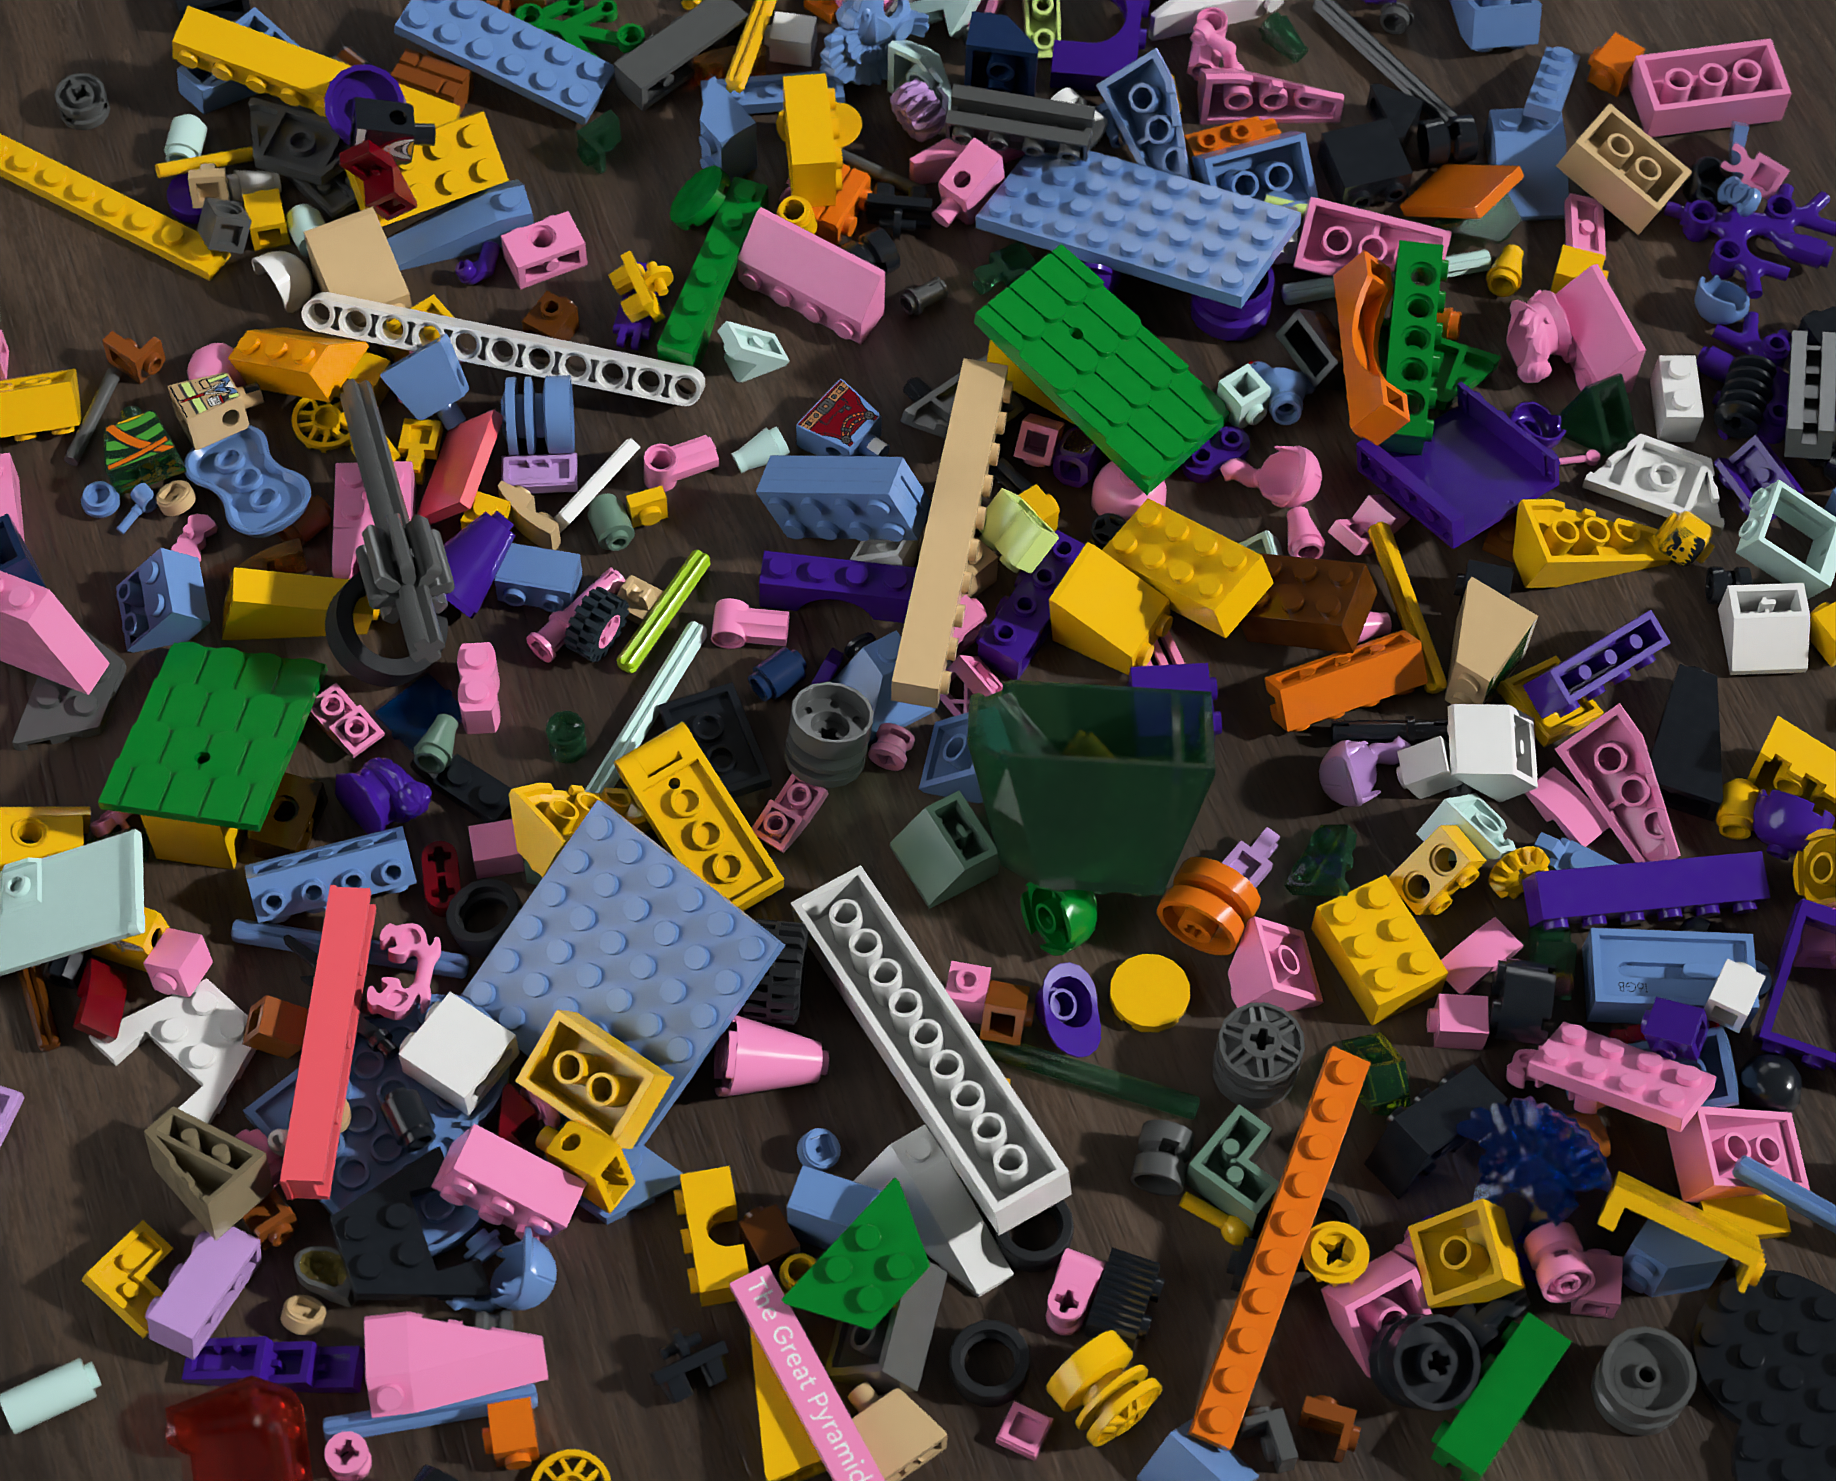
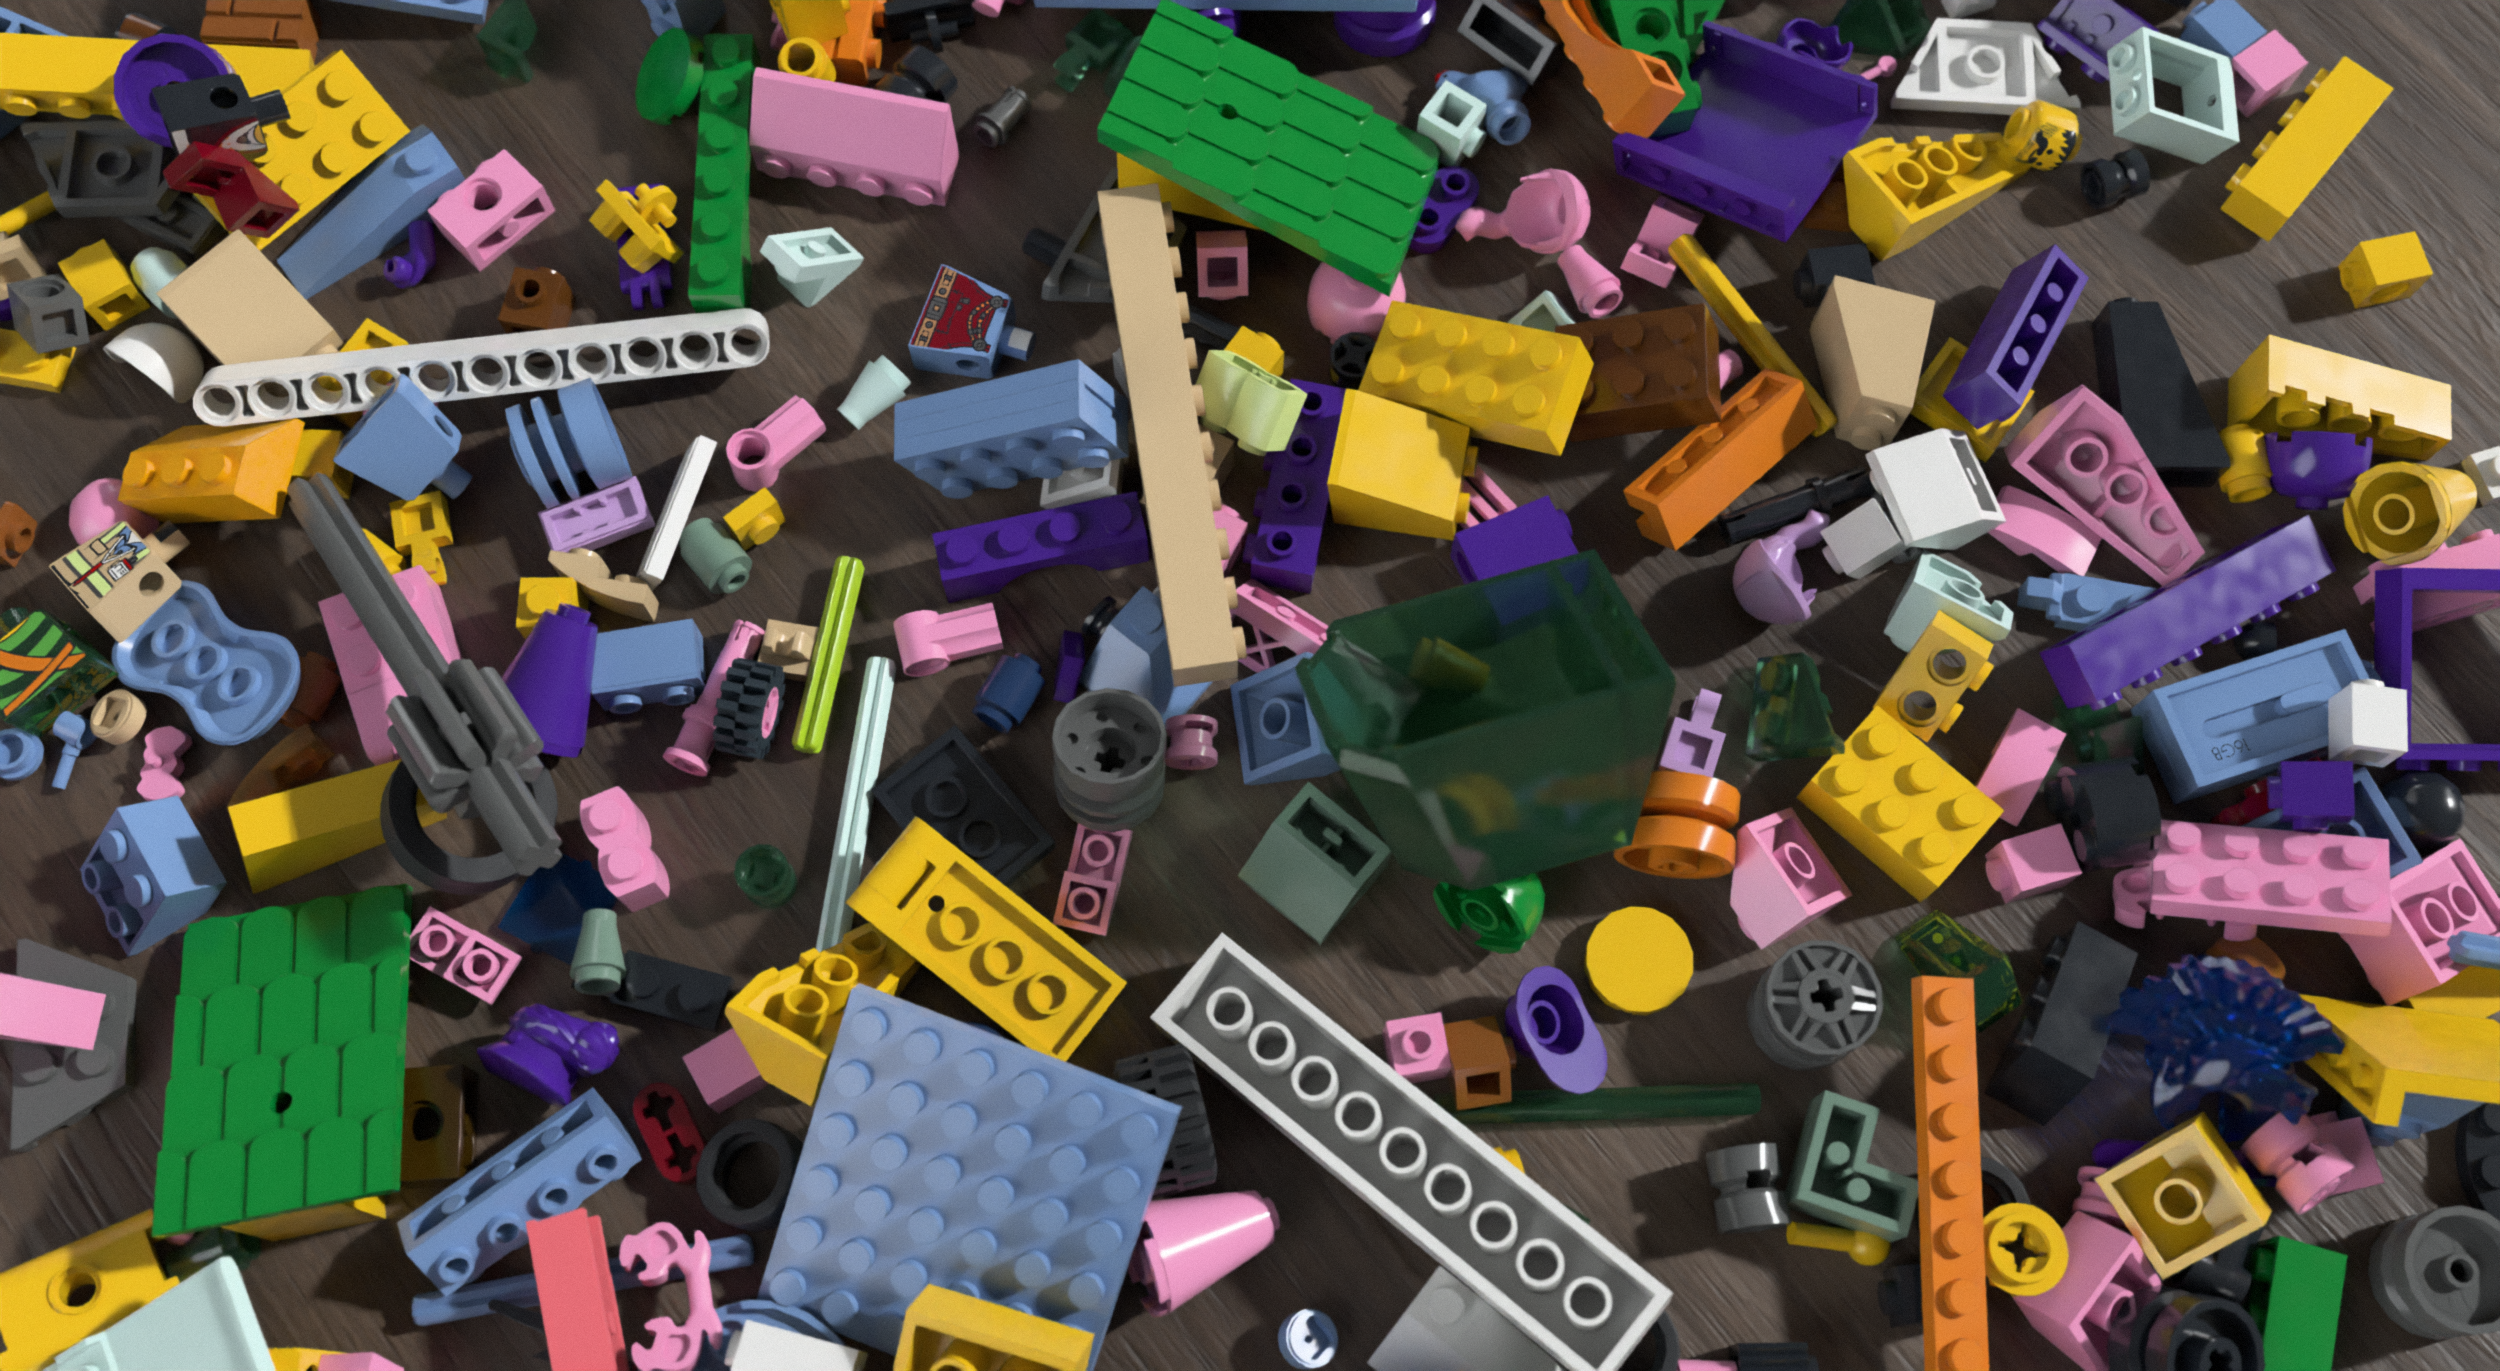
camera: 20 degrees left, 10 degrees up
(247, 182) = (63, 240): white cone -> none
(325, 420) = (283, 540): yellow wheel -> none
(460, 467) = (488, 550): coral tile -> none
(1076, 458) = (1275, 272): dark purple rock -> none
(1505, 875) = (2027, 638): yellow gear -> none
(1765, 628) = (2183, 220): white slope -> none

